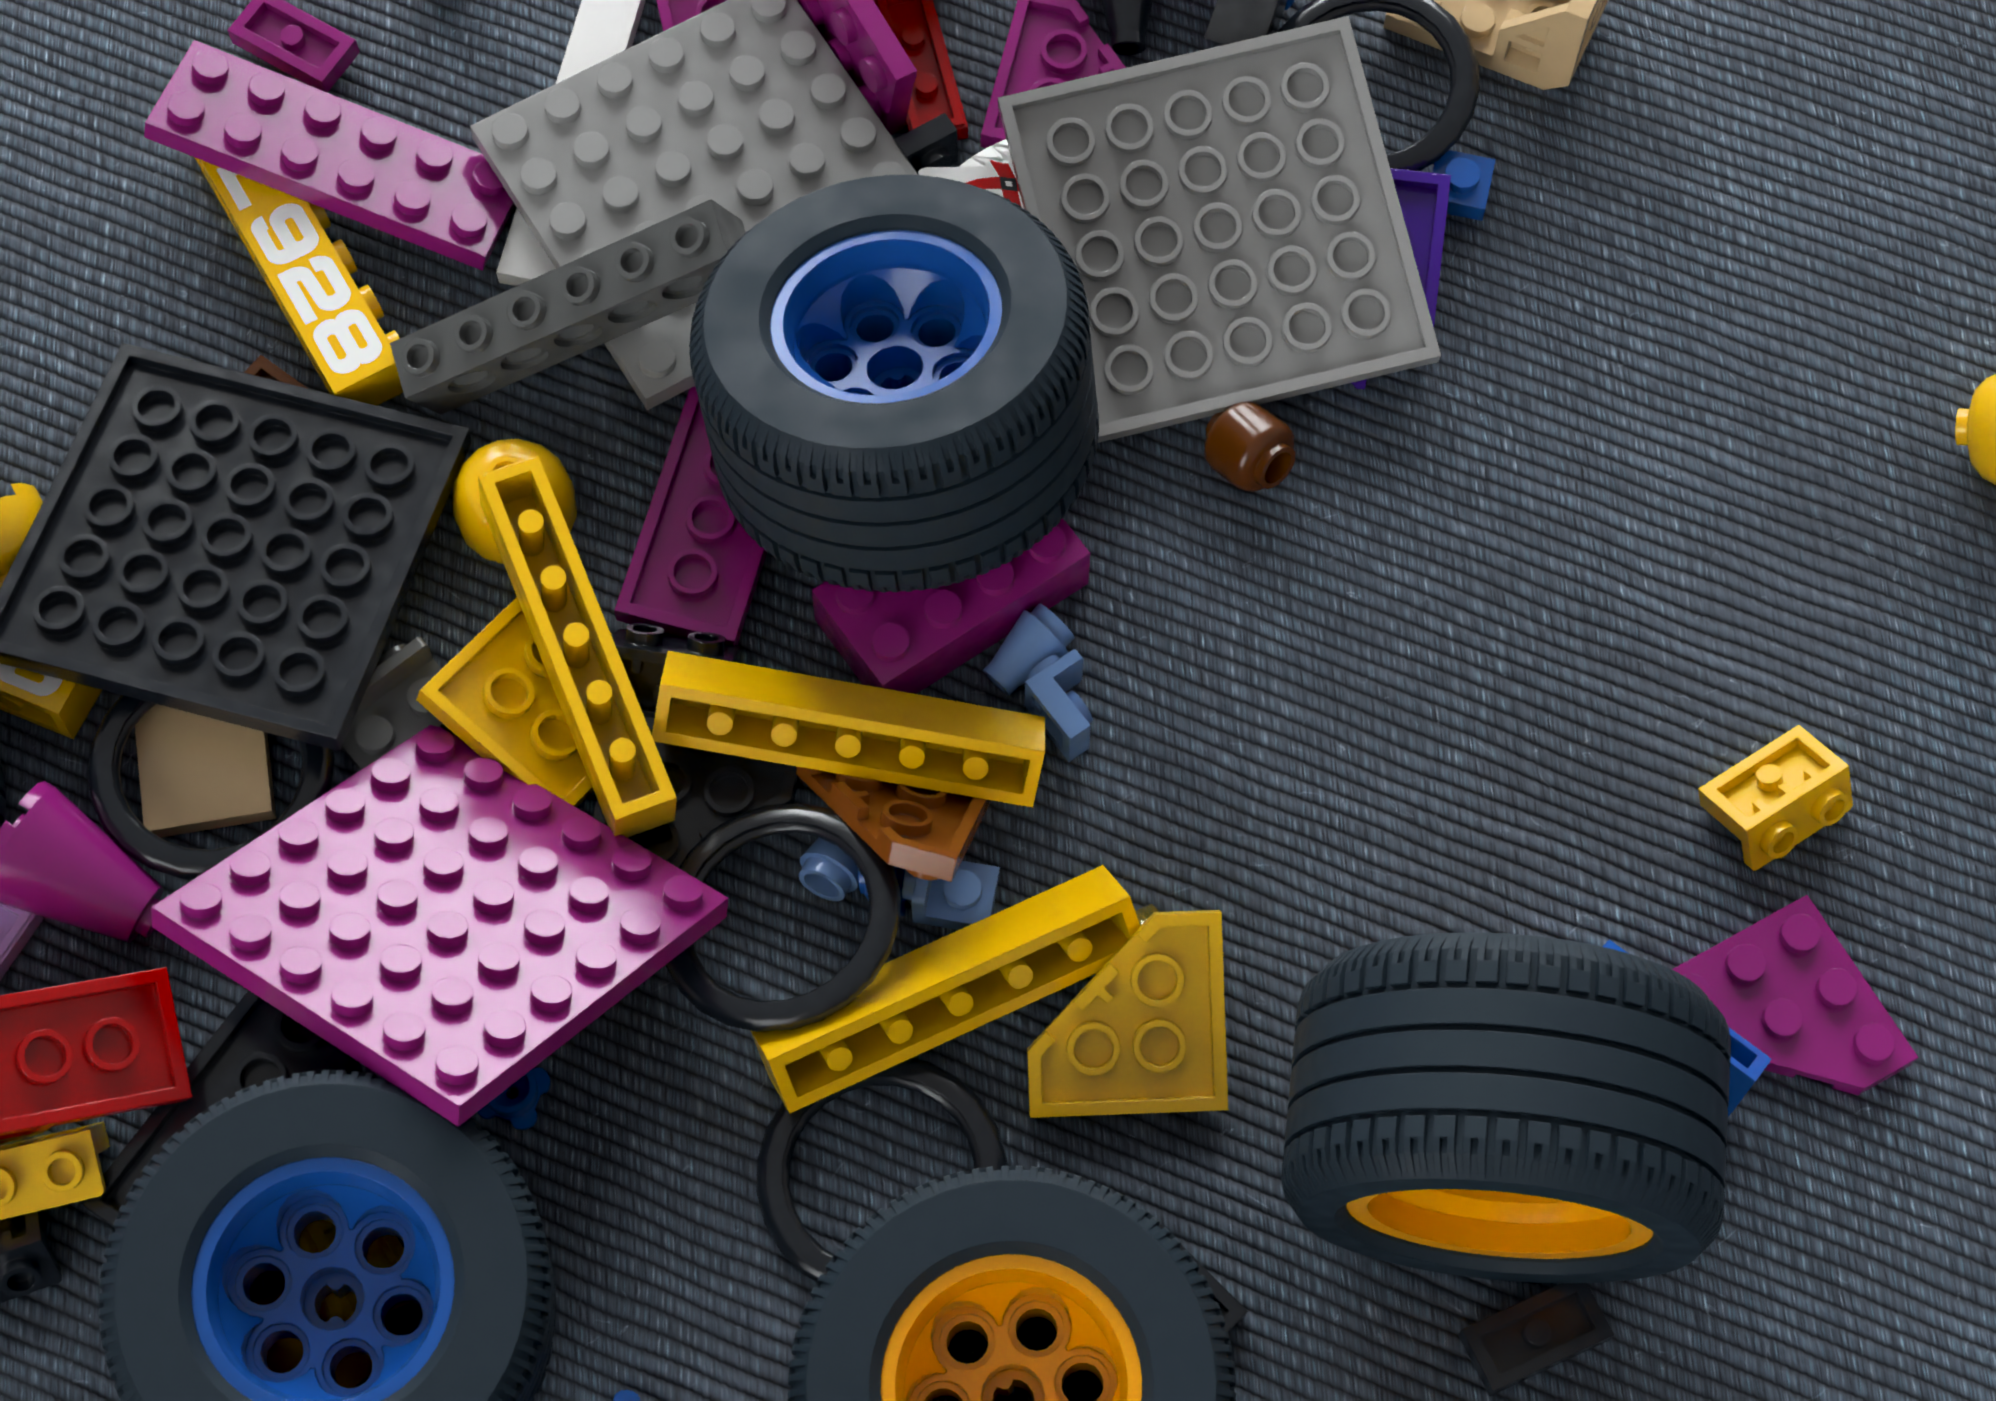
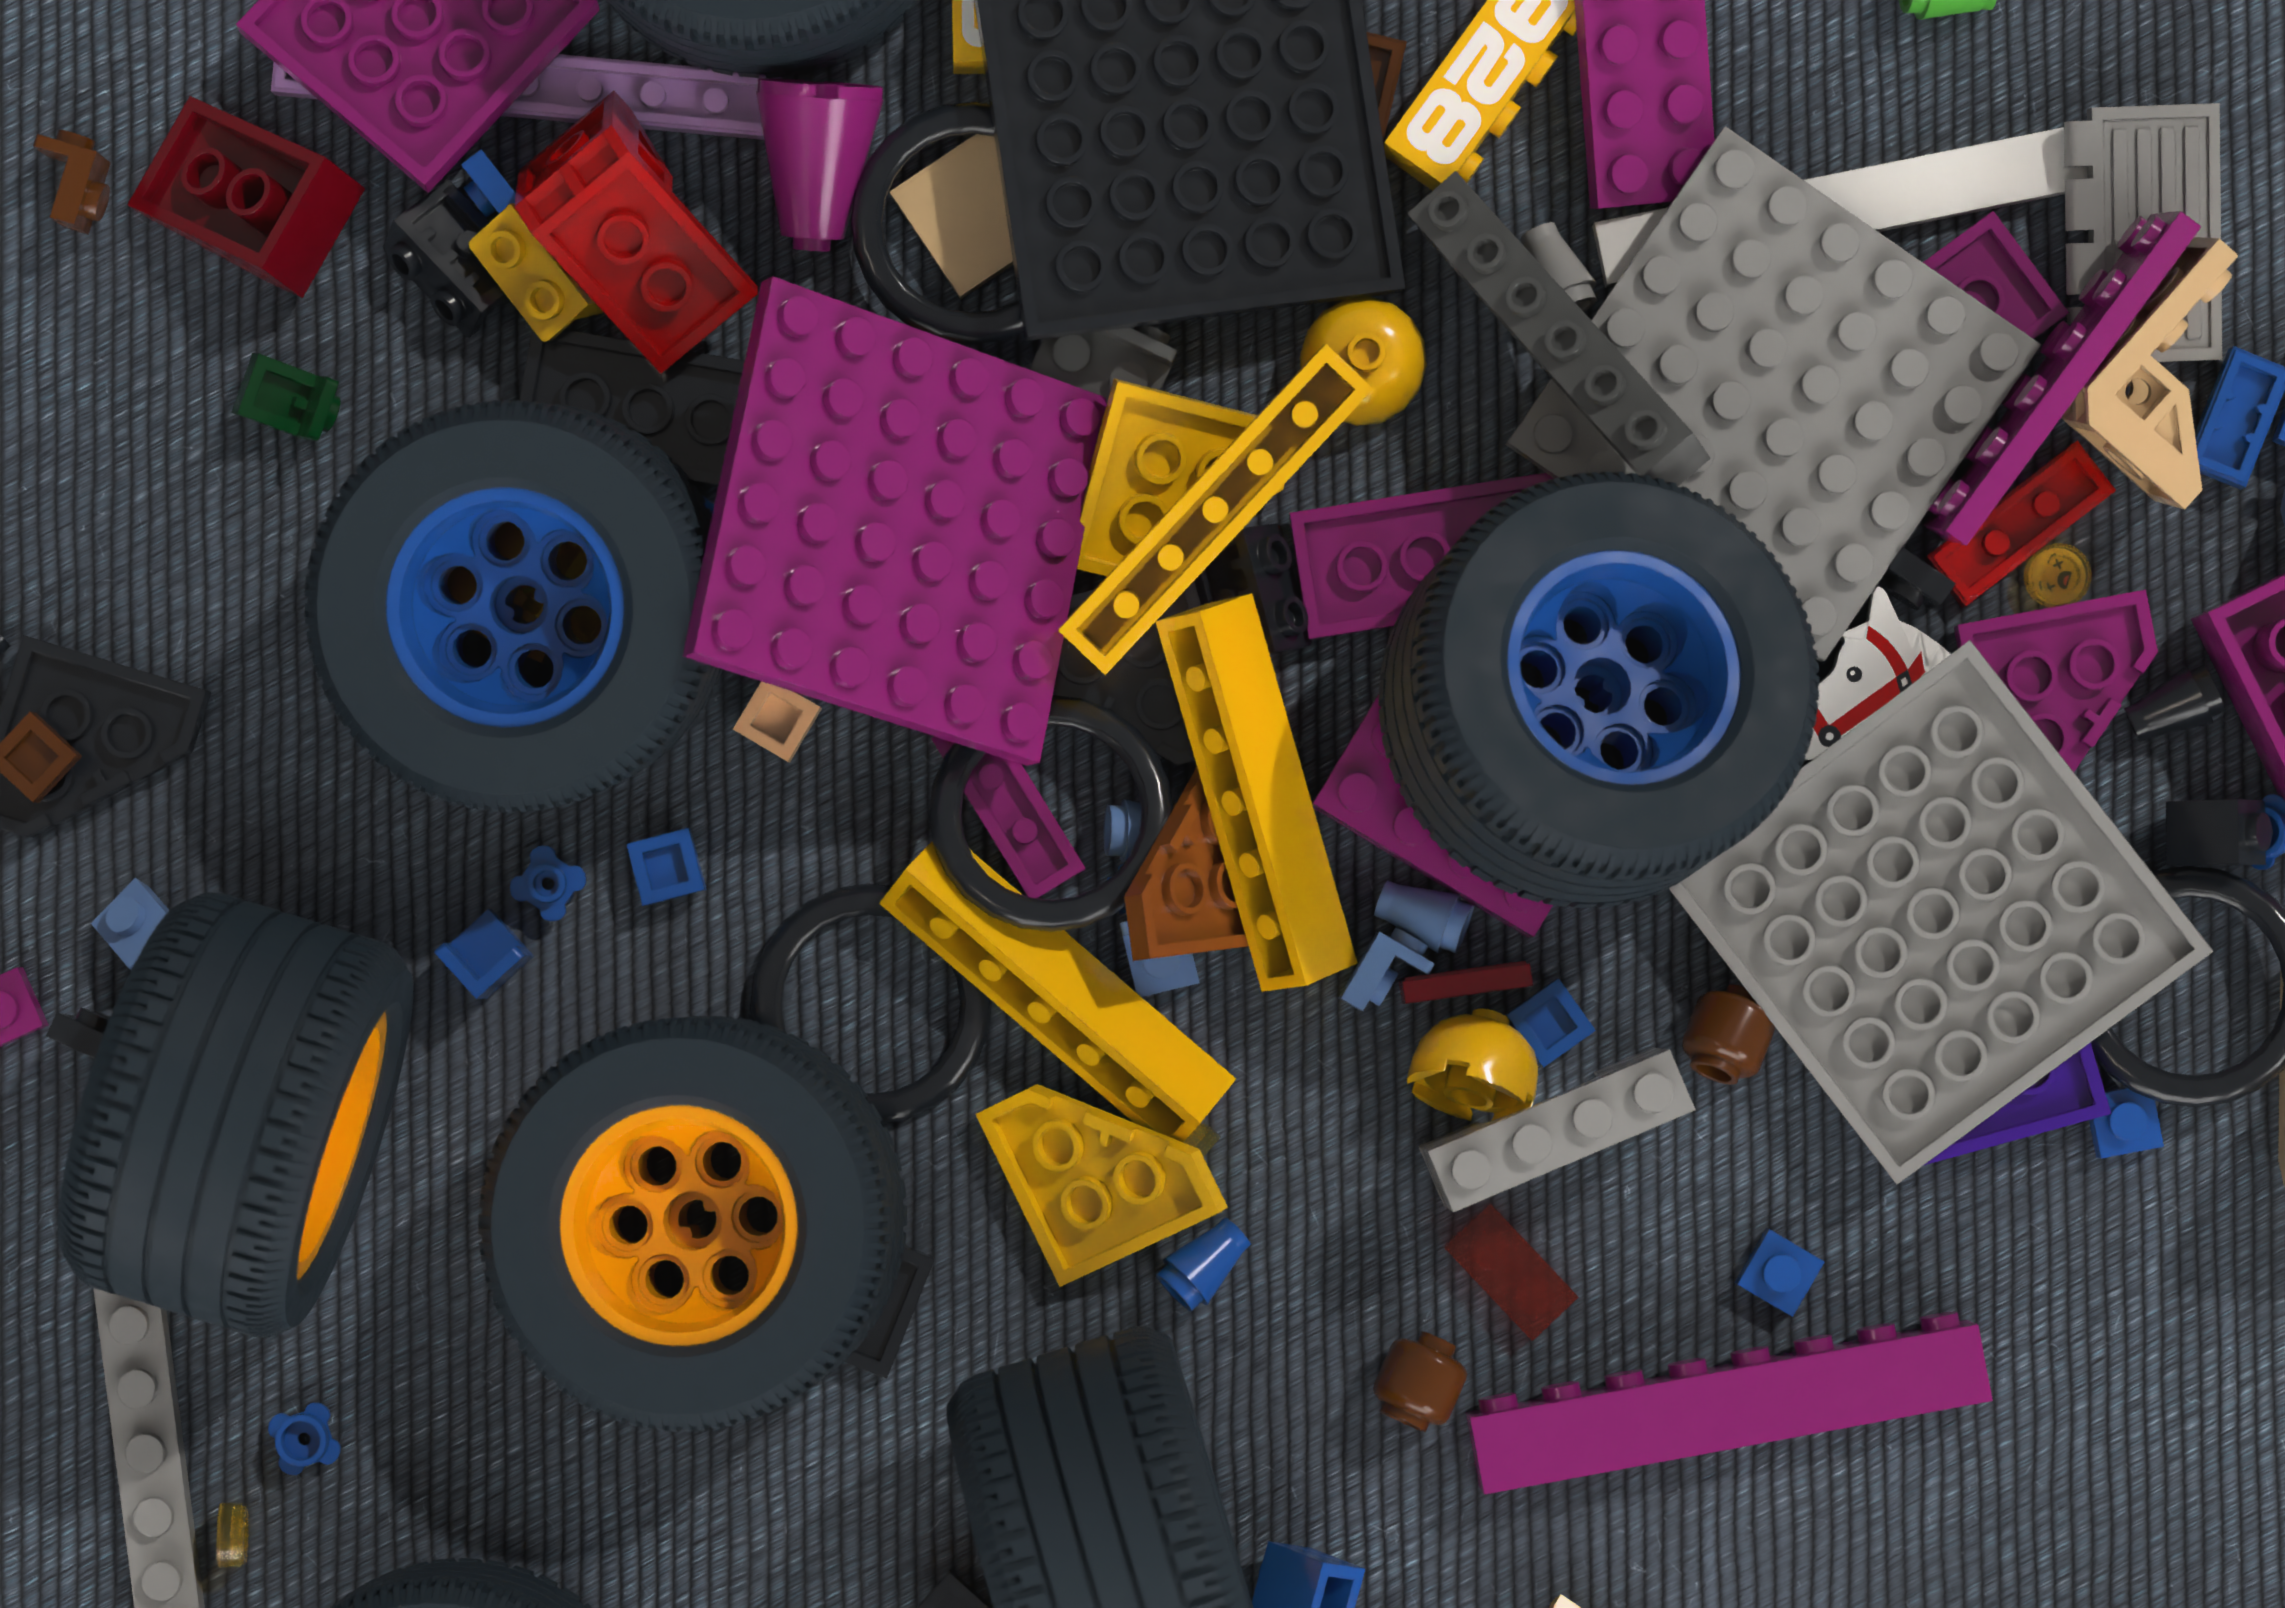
camera: 65 degrees right, 20 degrees up
(570, 1141) = (777, 719): none -> light nougat plate
(659, 1307) = (666, 867): none -> blue plate
(766, 961) = (1019, 823): none -> magenta plate
(976, 54) = (2057, 575): none -> clear yellow tile
(1104, 638) = (1465, 982): none -> dark red tile
(1172, 587) = (1550, 1022): none -> blue plate
(1187, 656) = (1474, 1065): none -> yellow cylinder
(1263, 975) = (1202, 1265): none -> blue cone
(1275, 640) = (1558, 1131): none -> light grey arch
(1383, 715) = (1510, 1271): none -> clear red plate
(1452, 825) = (1420, 1381): none -> reddish brown head
(1477, 497) = (1779, 1272): none -> blue plate
(1578, 588) = (1728, 1404): none -> magenta brick

